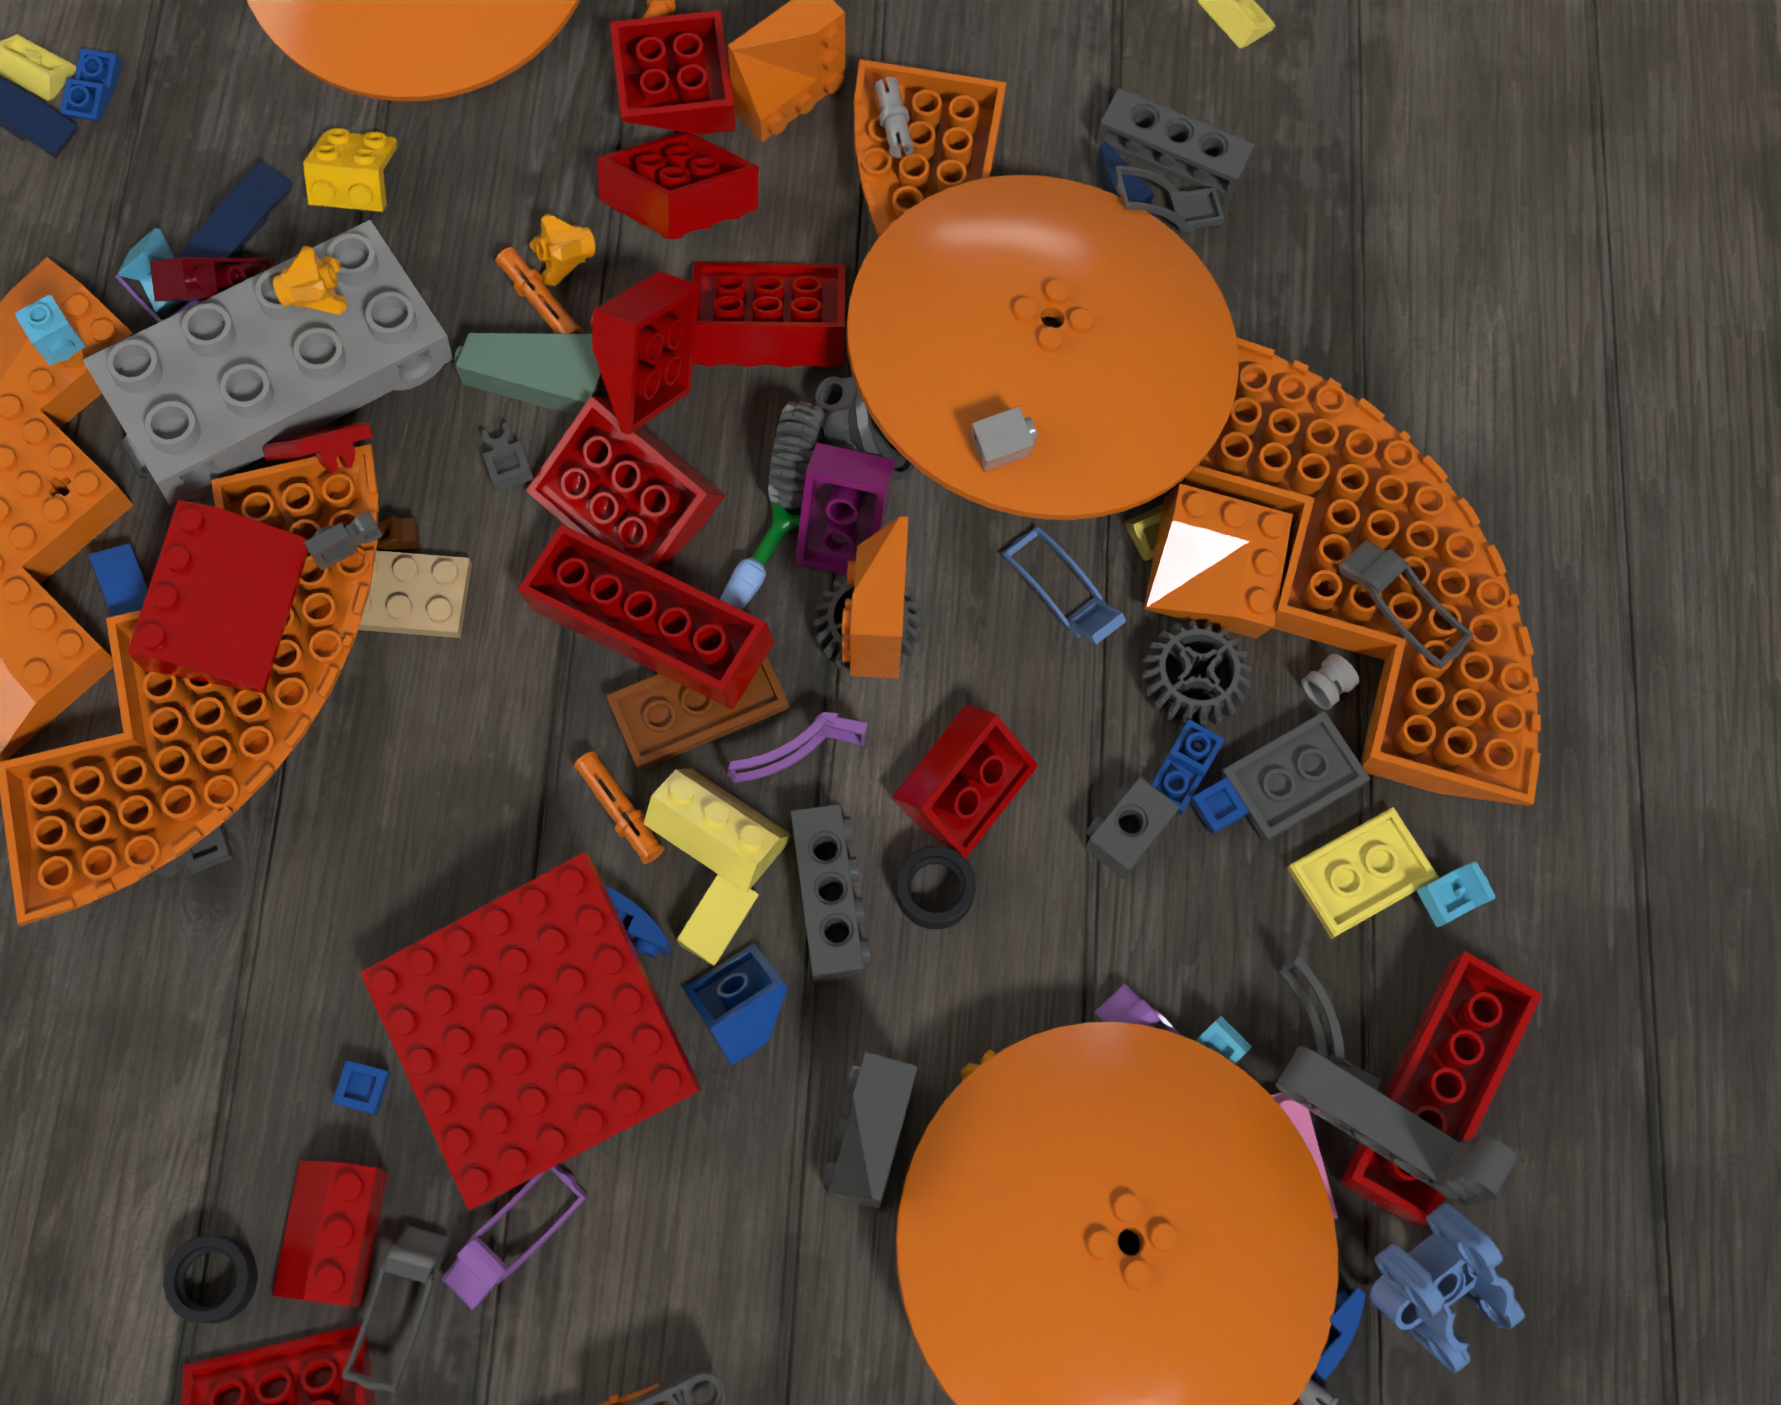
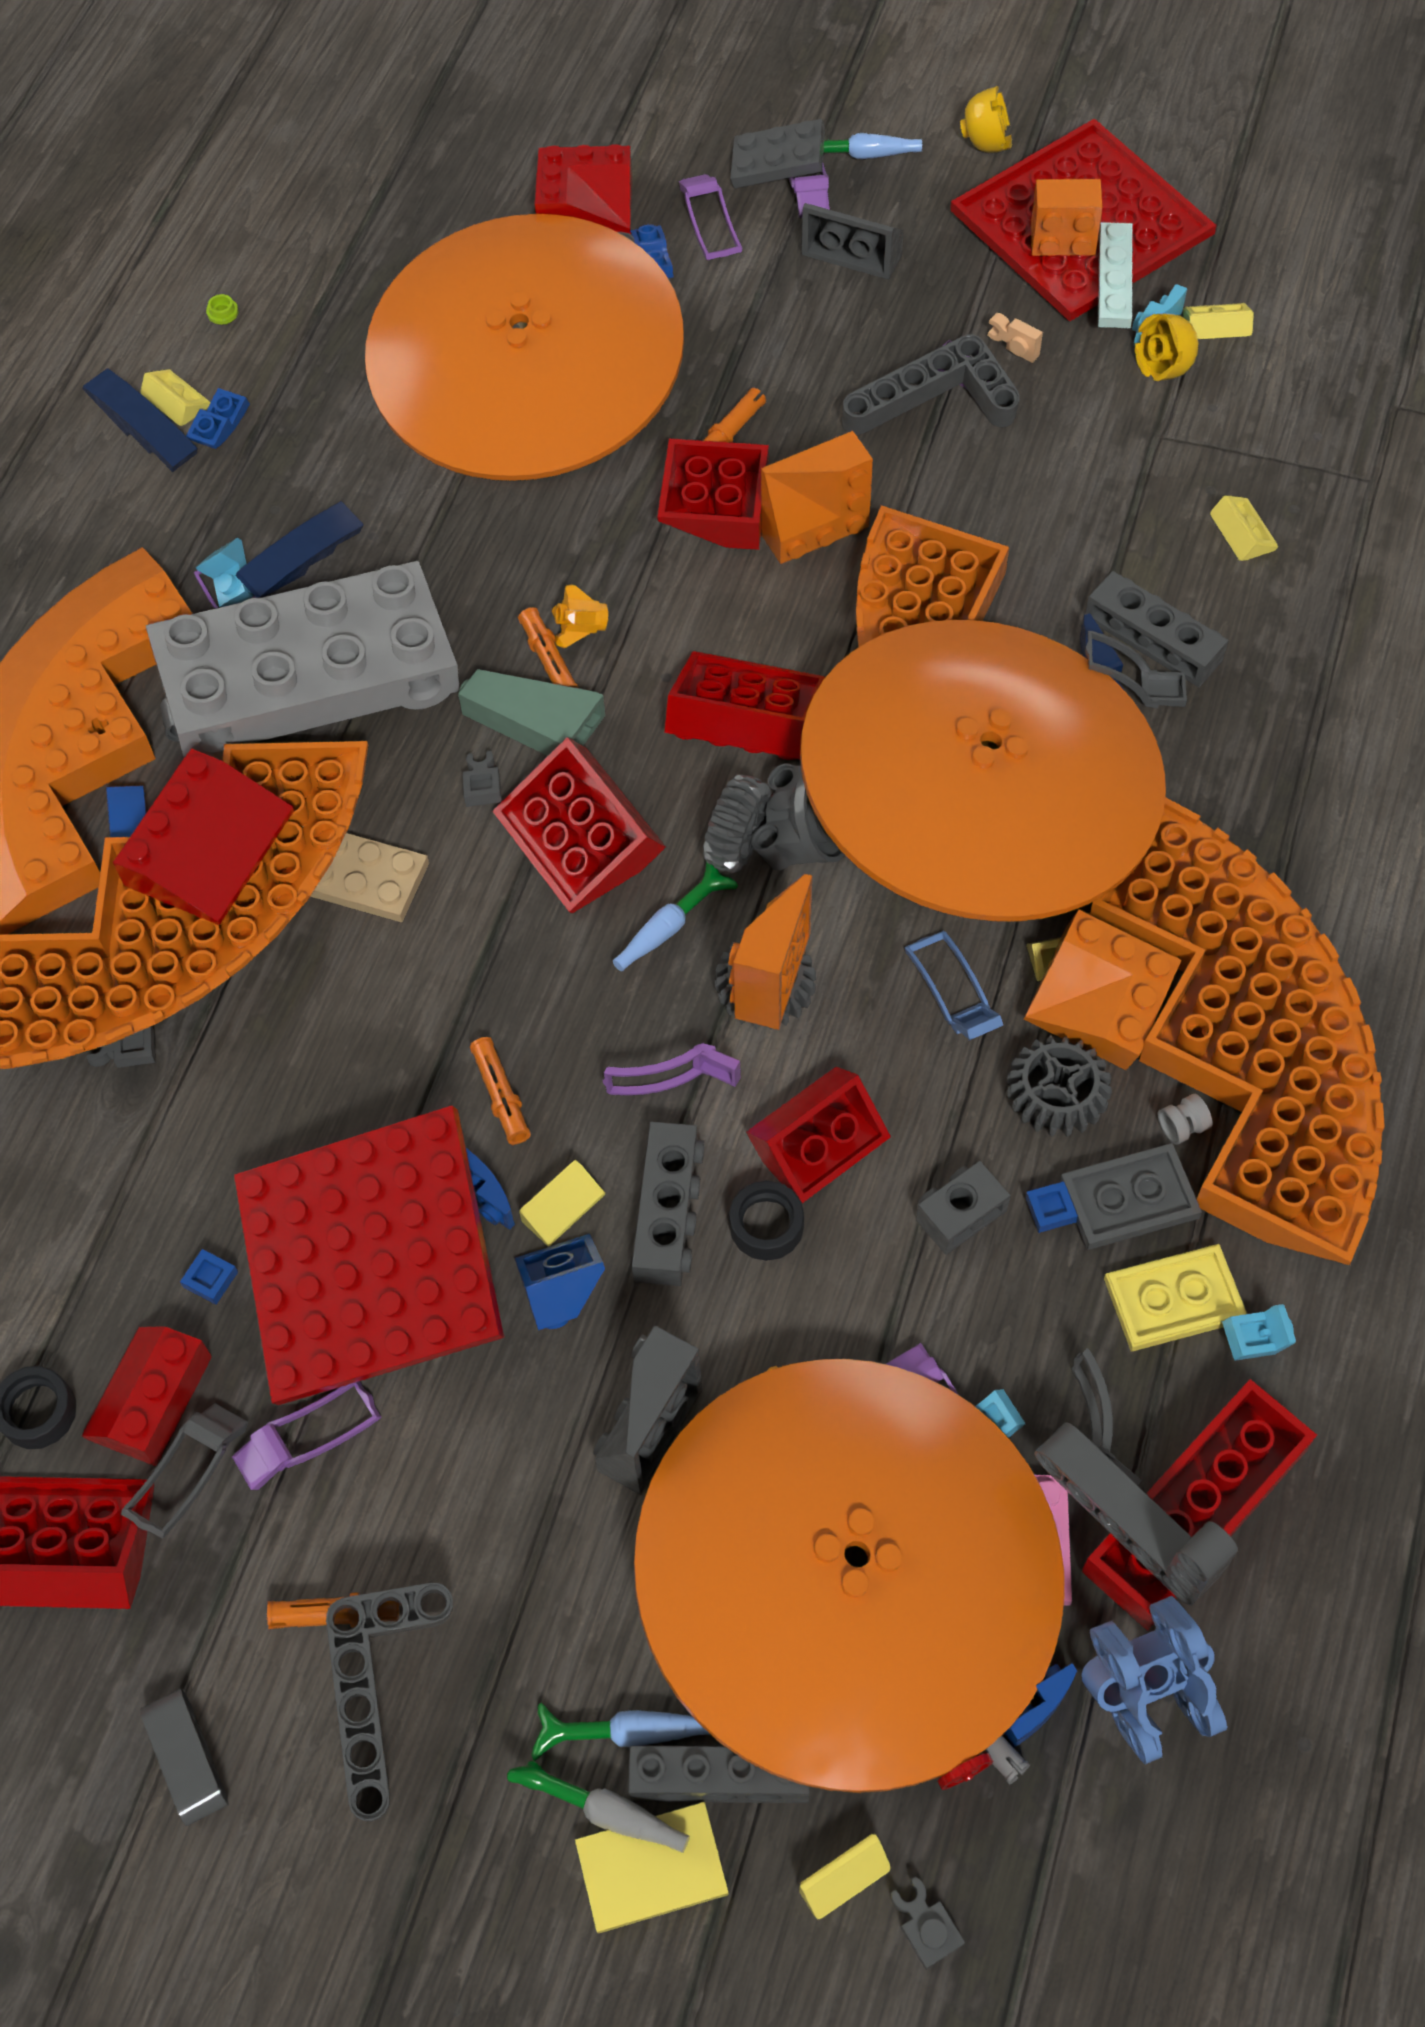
camera: 20 degrees right, 10 degrees down
(49, 330) = (126, 597): medium azure bracket -> none
(201, 277) = (258, 579): dark red slope -> none
(310, 283) = (351, 596): light orange rock -> none
(323, 443) = (325, 733): red piece -> none
(339, 542) = (315, 812): dark grey plate -> none
(348, 170) = (413, 522): yellow bracket -> none
(399, 534) = (372, 824): reddish brown piece -> none
(646, 347) = (625, 703): red slope -> none
(647, 616) = (568, 930): red brick -> none
(670, 719) = (594, 1016): dark orange plate -> none
(678, 184) = (694, 582): red slope -> none
(715, 827) = (578, 1122): light yellow slope -> none
(841, 506) = (761, 865): magenta slope -> none
(894, 117) = (898, 556): light grey pin -> none
(1003, 438) = (917, 829): light grey brick -> none
(1187, 764) = (1030, 1163): blue slope -> none
(1375, 571) = (1247, 1018): dark grey piece -> none

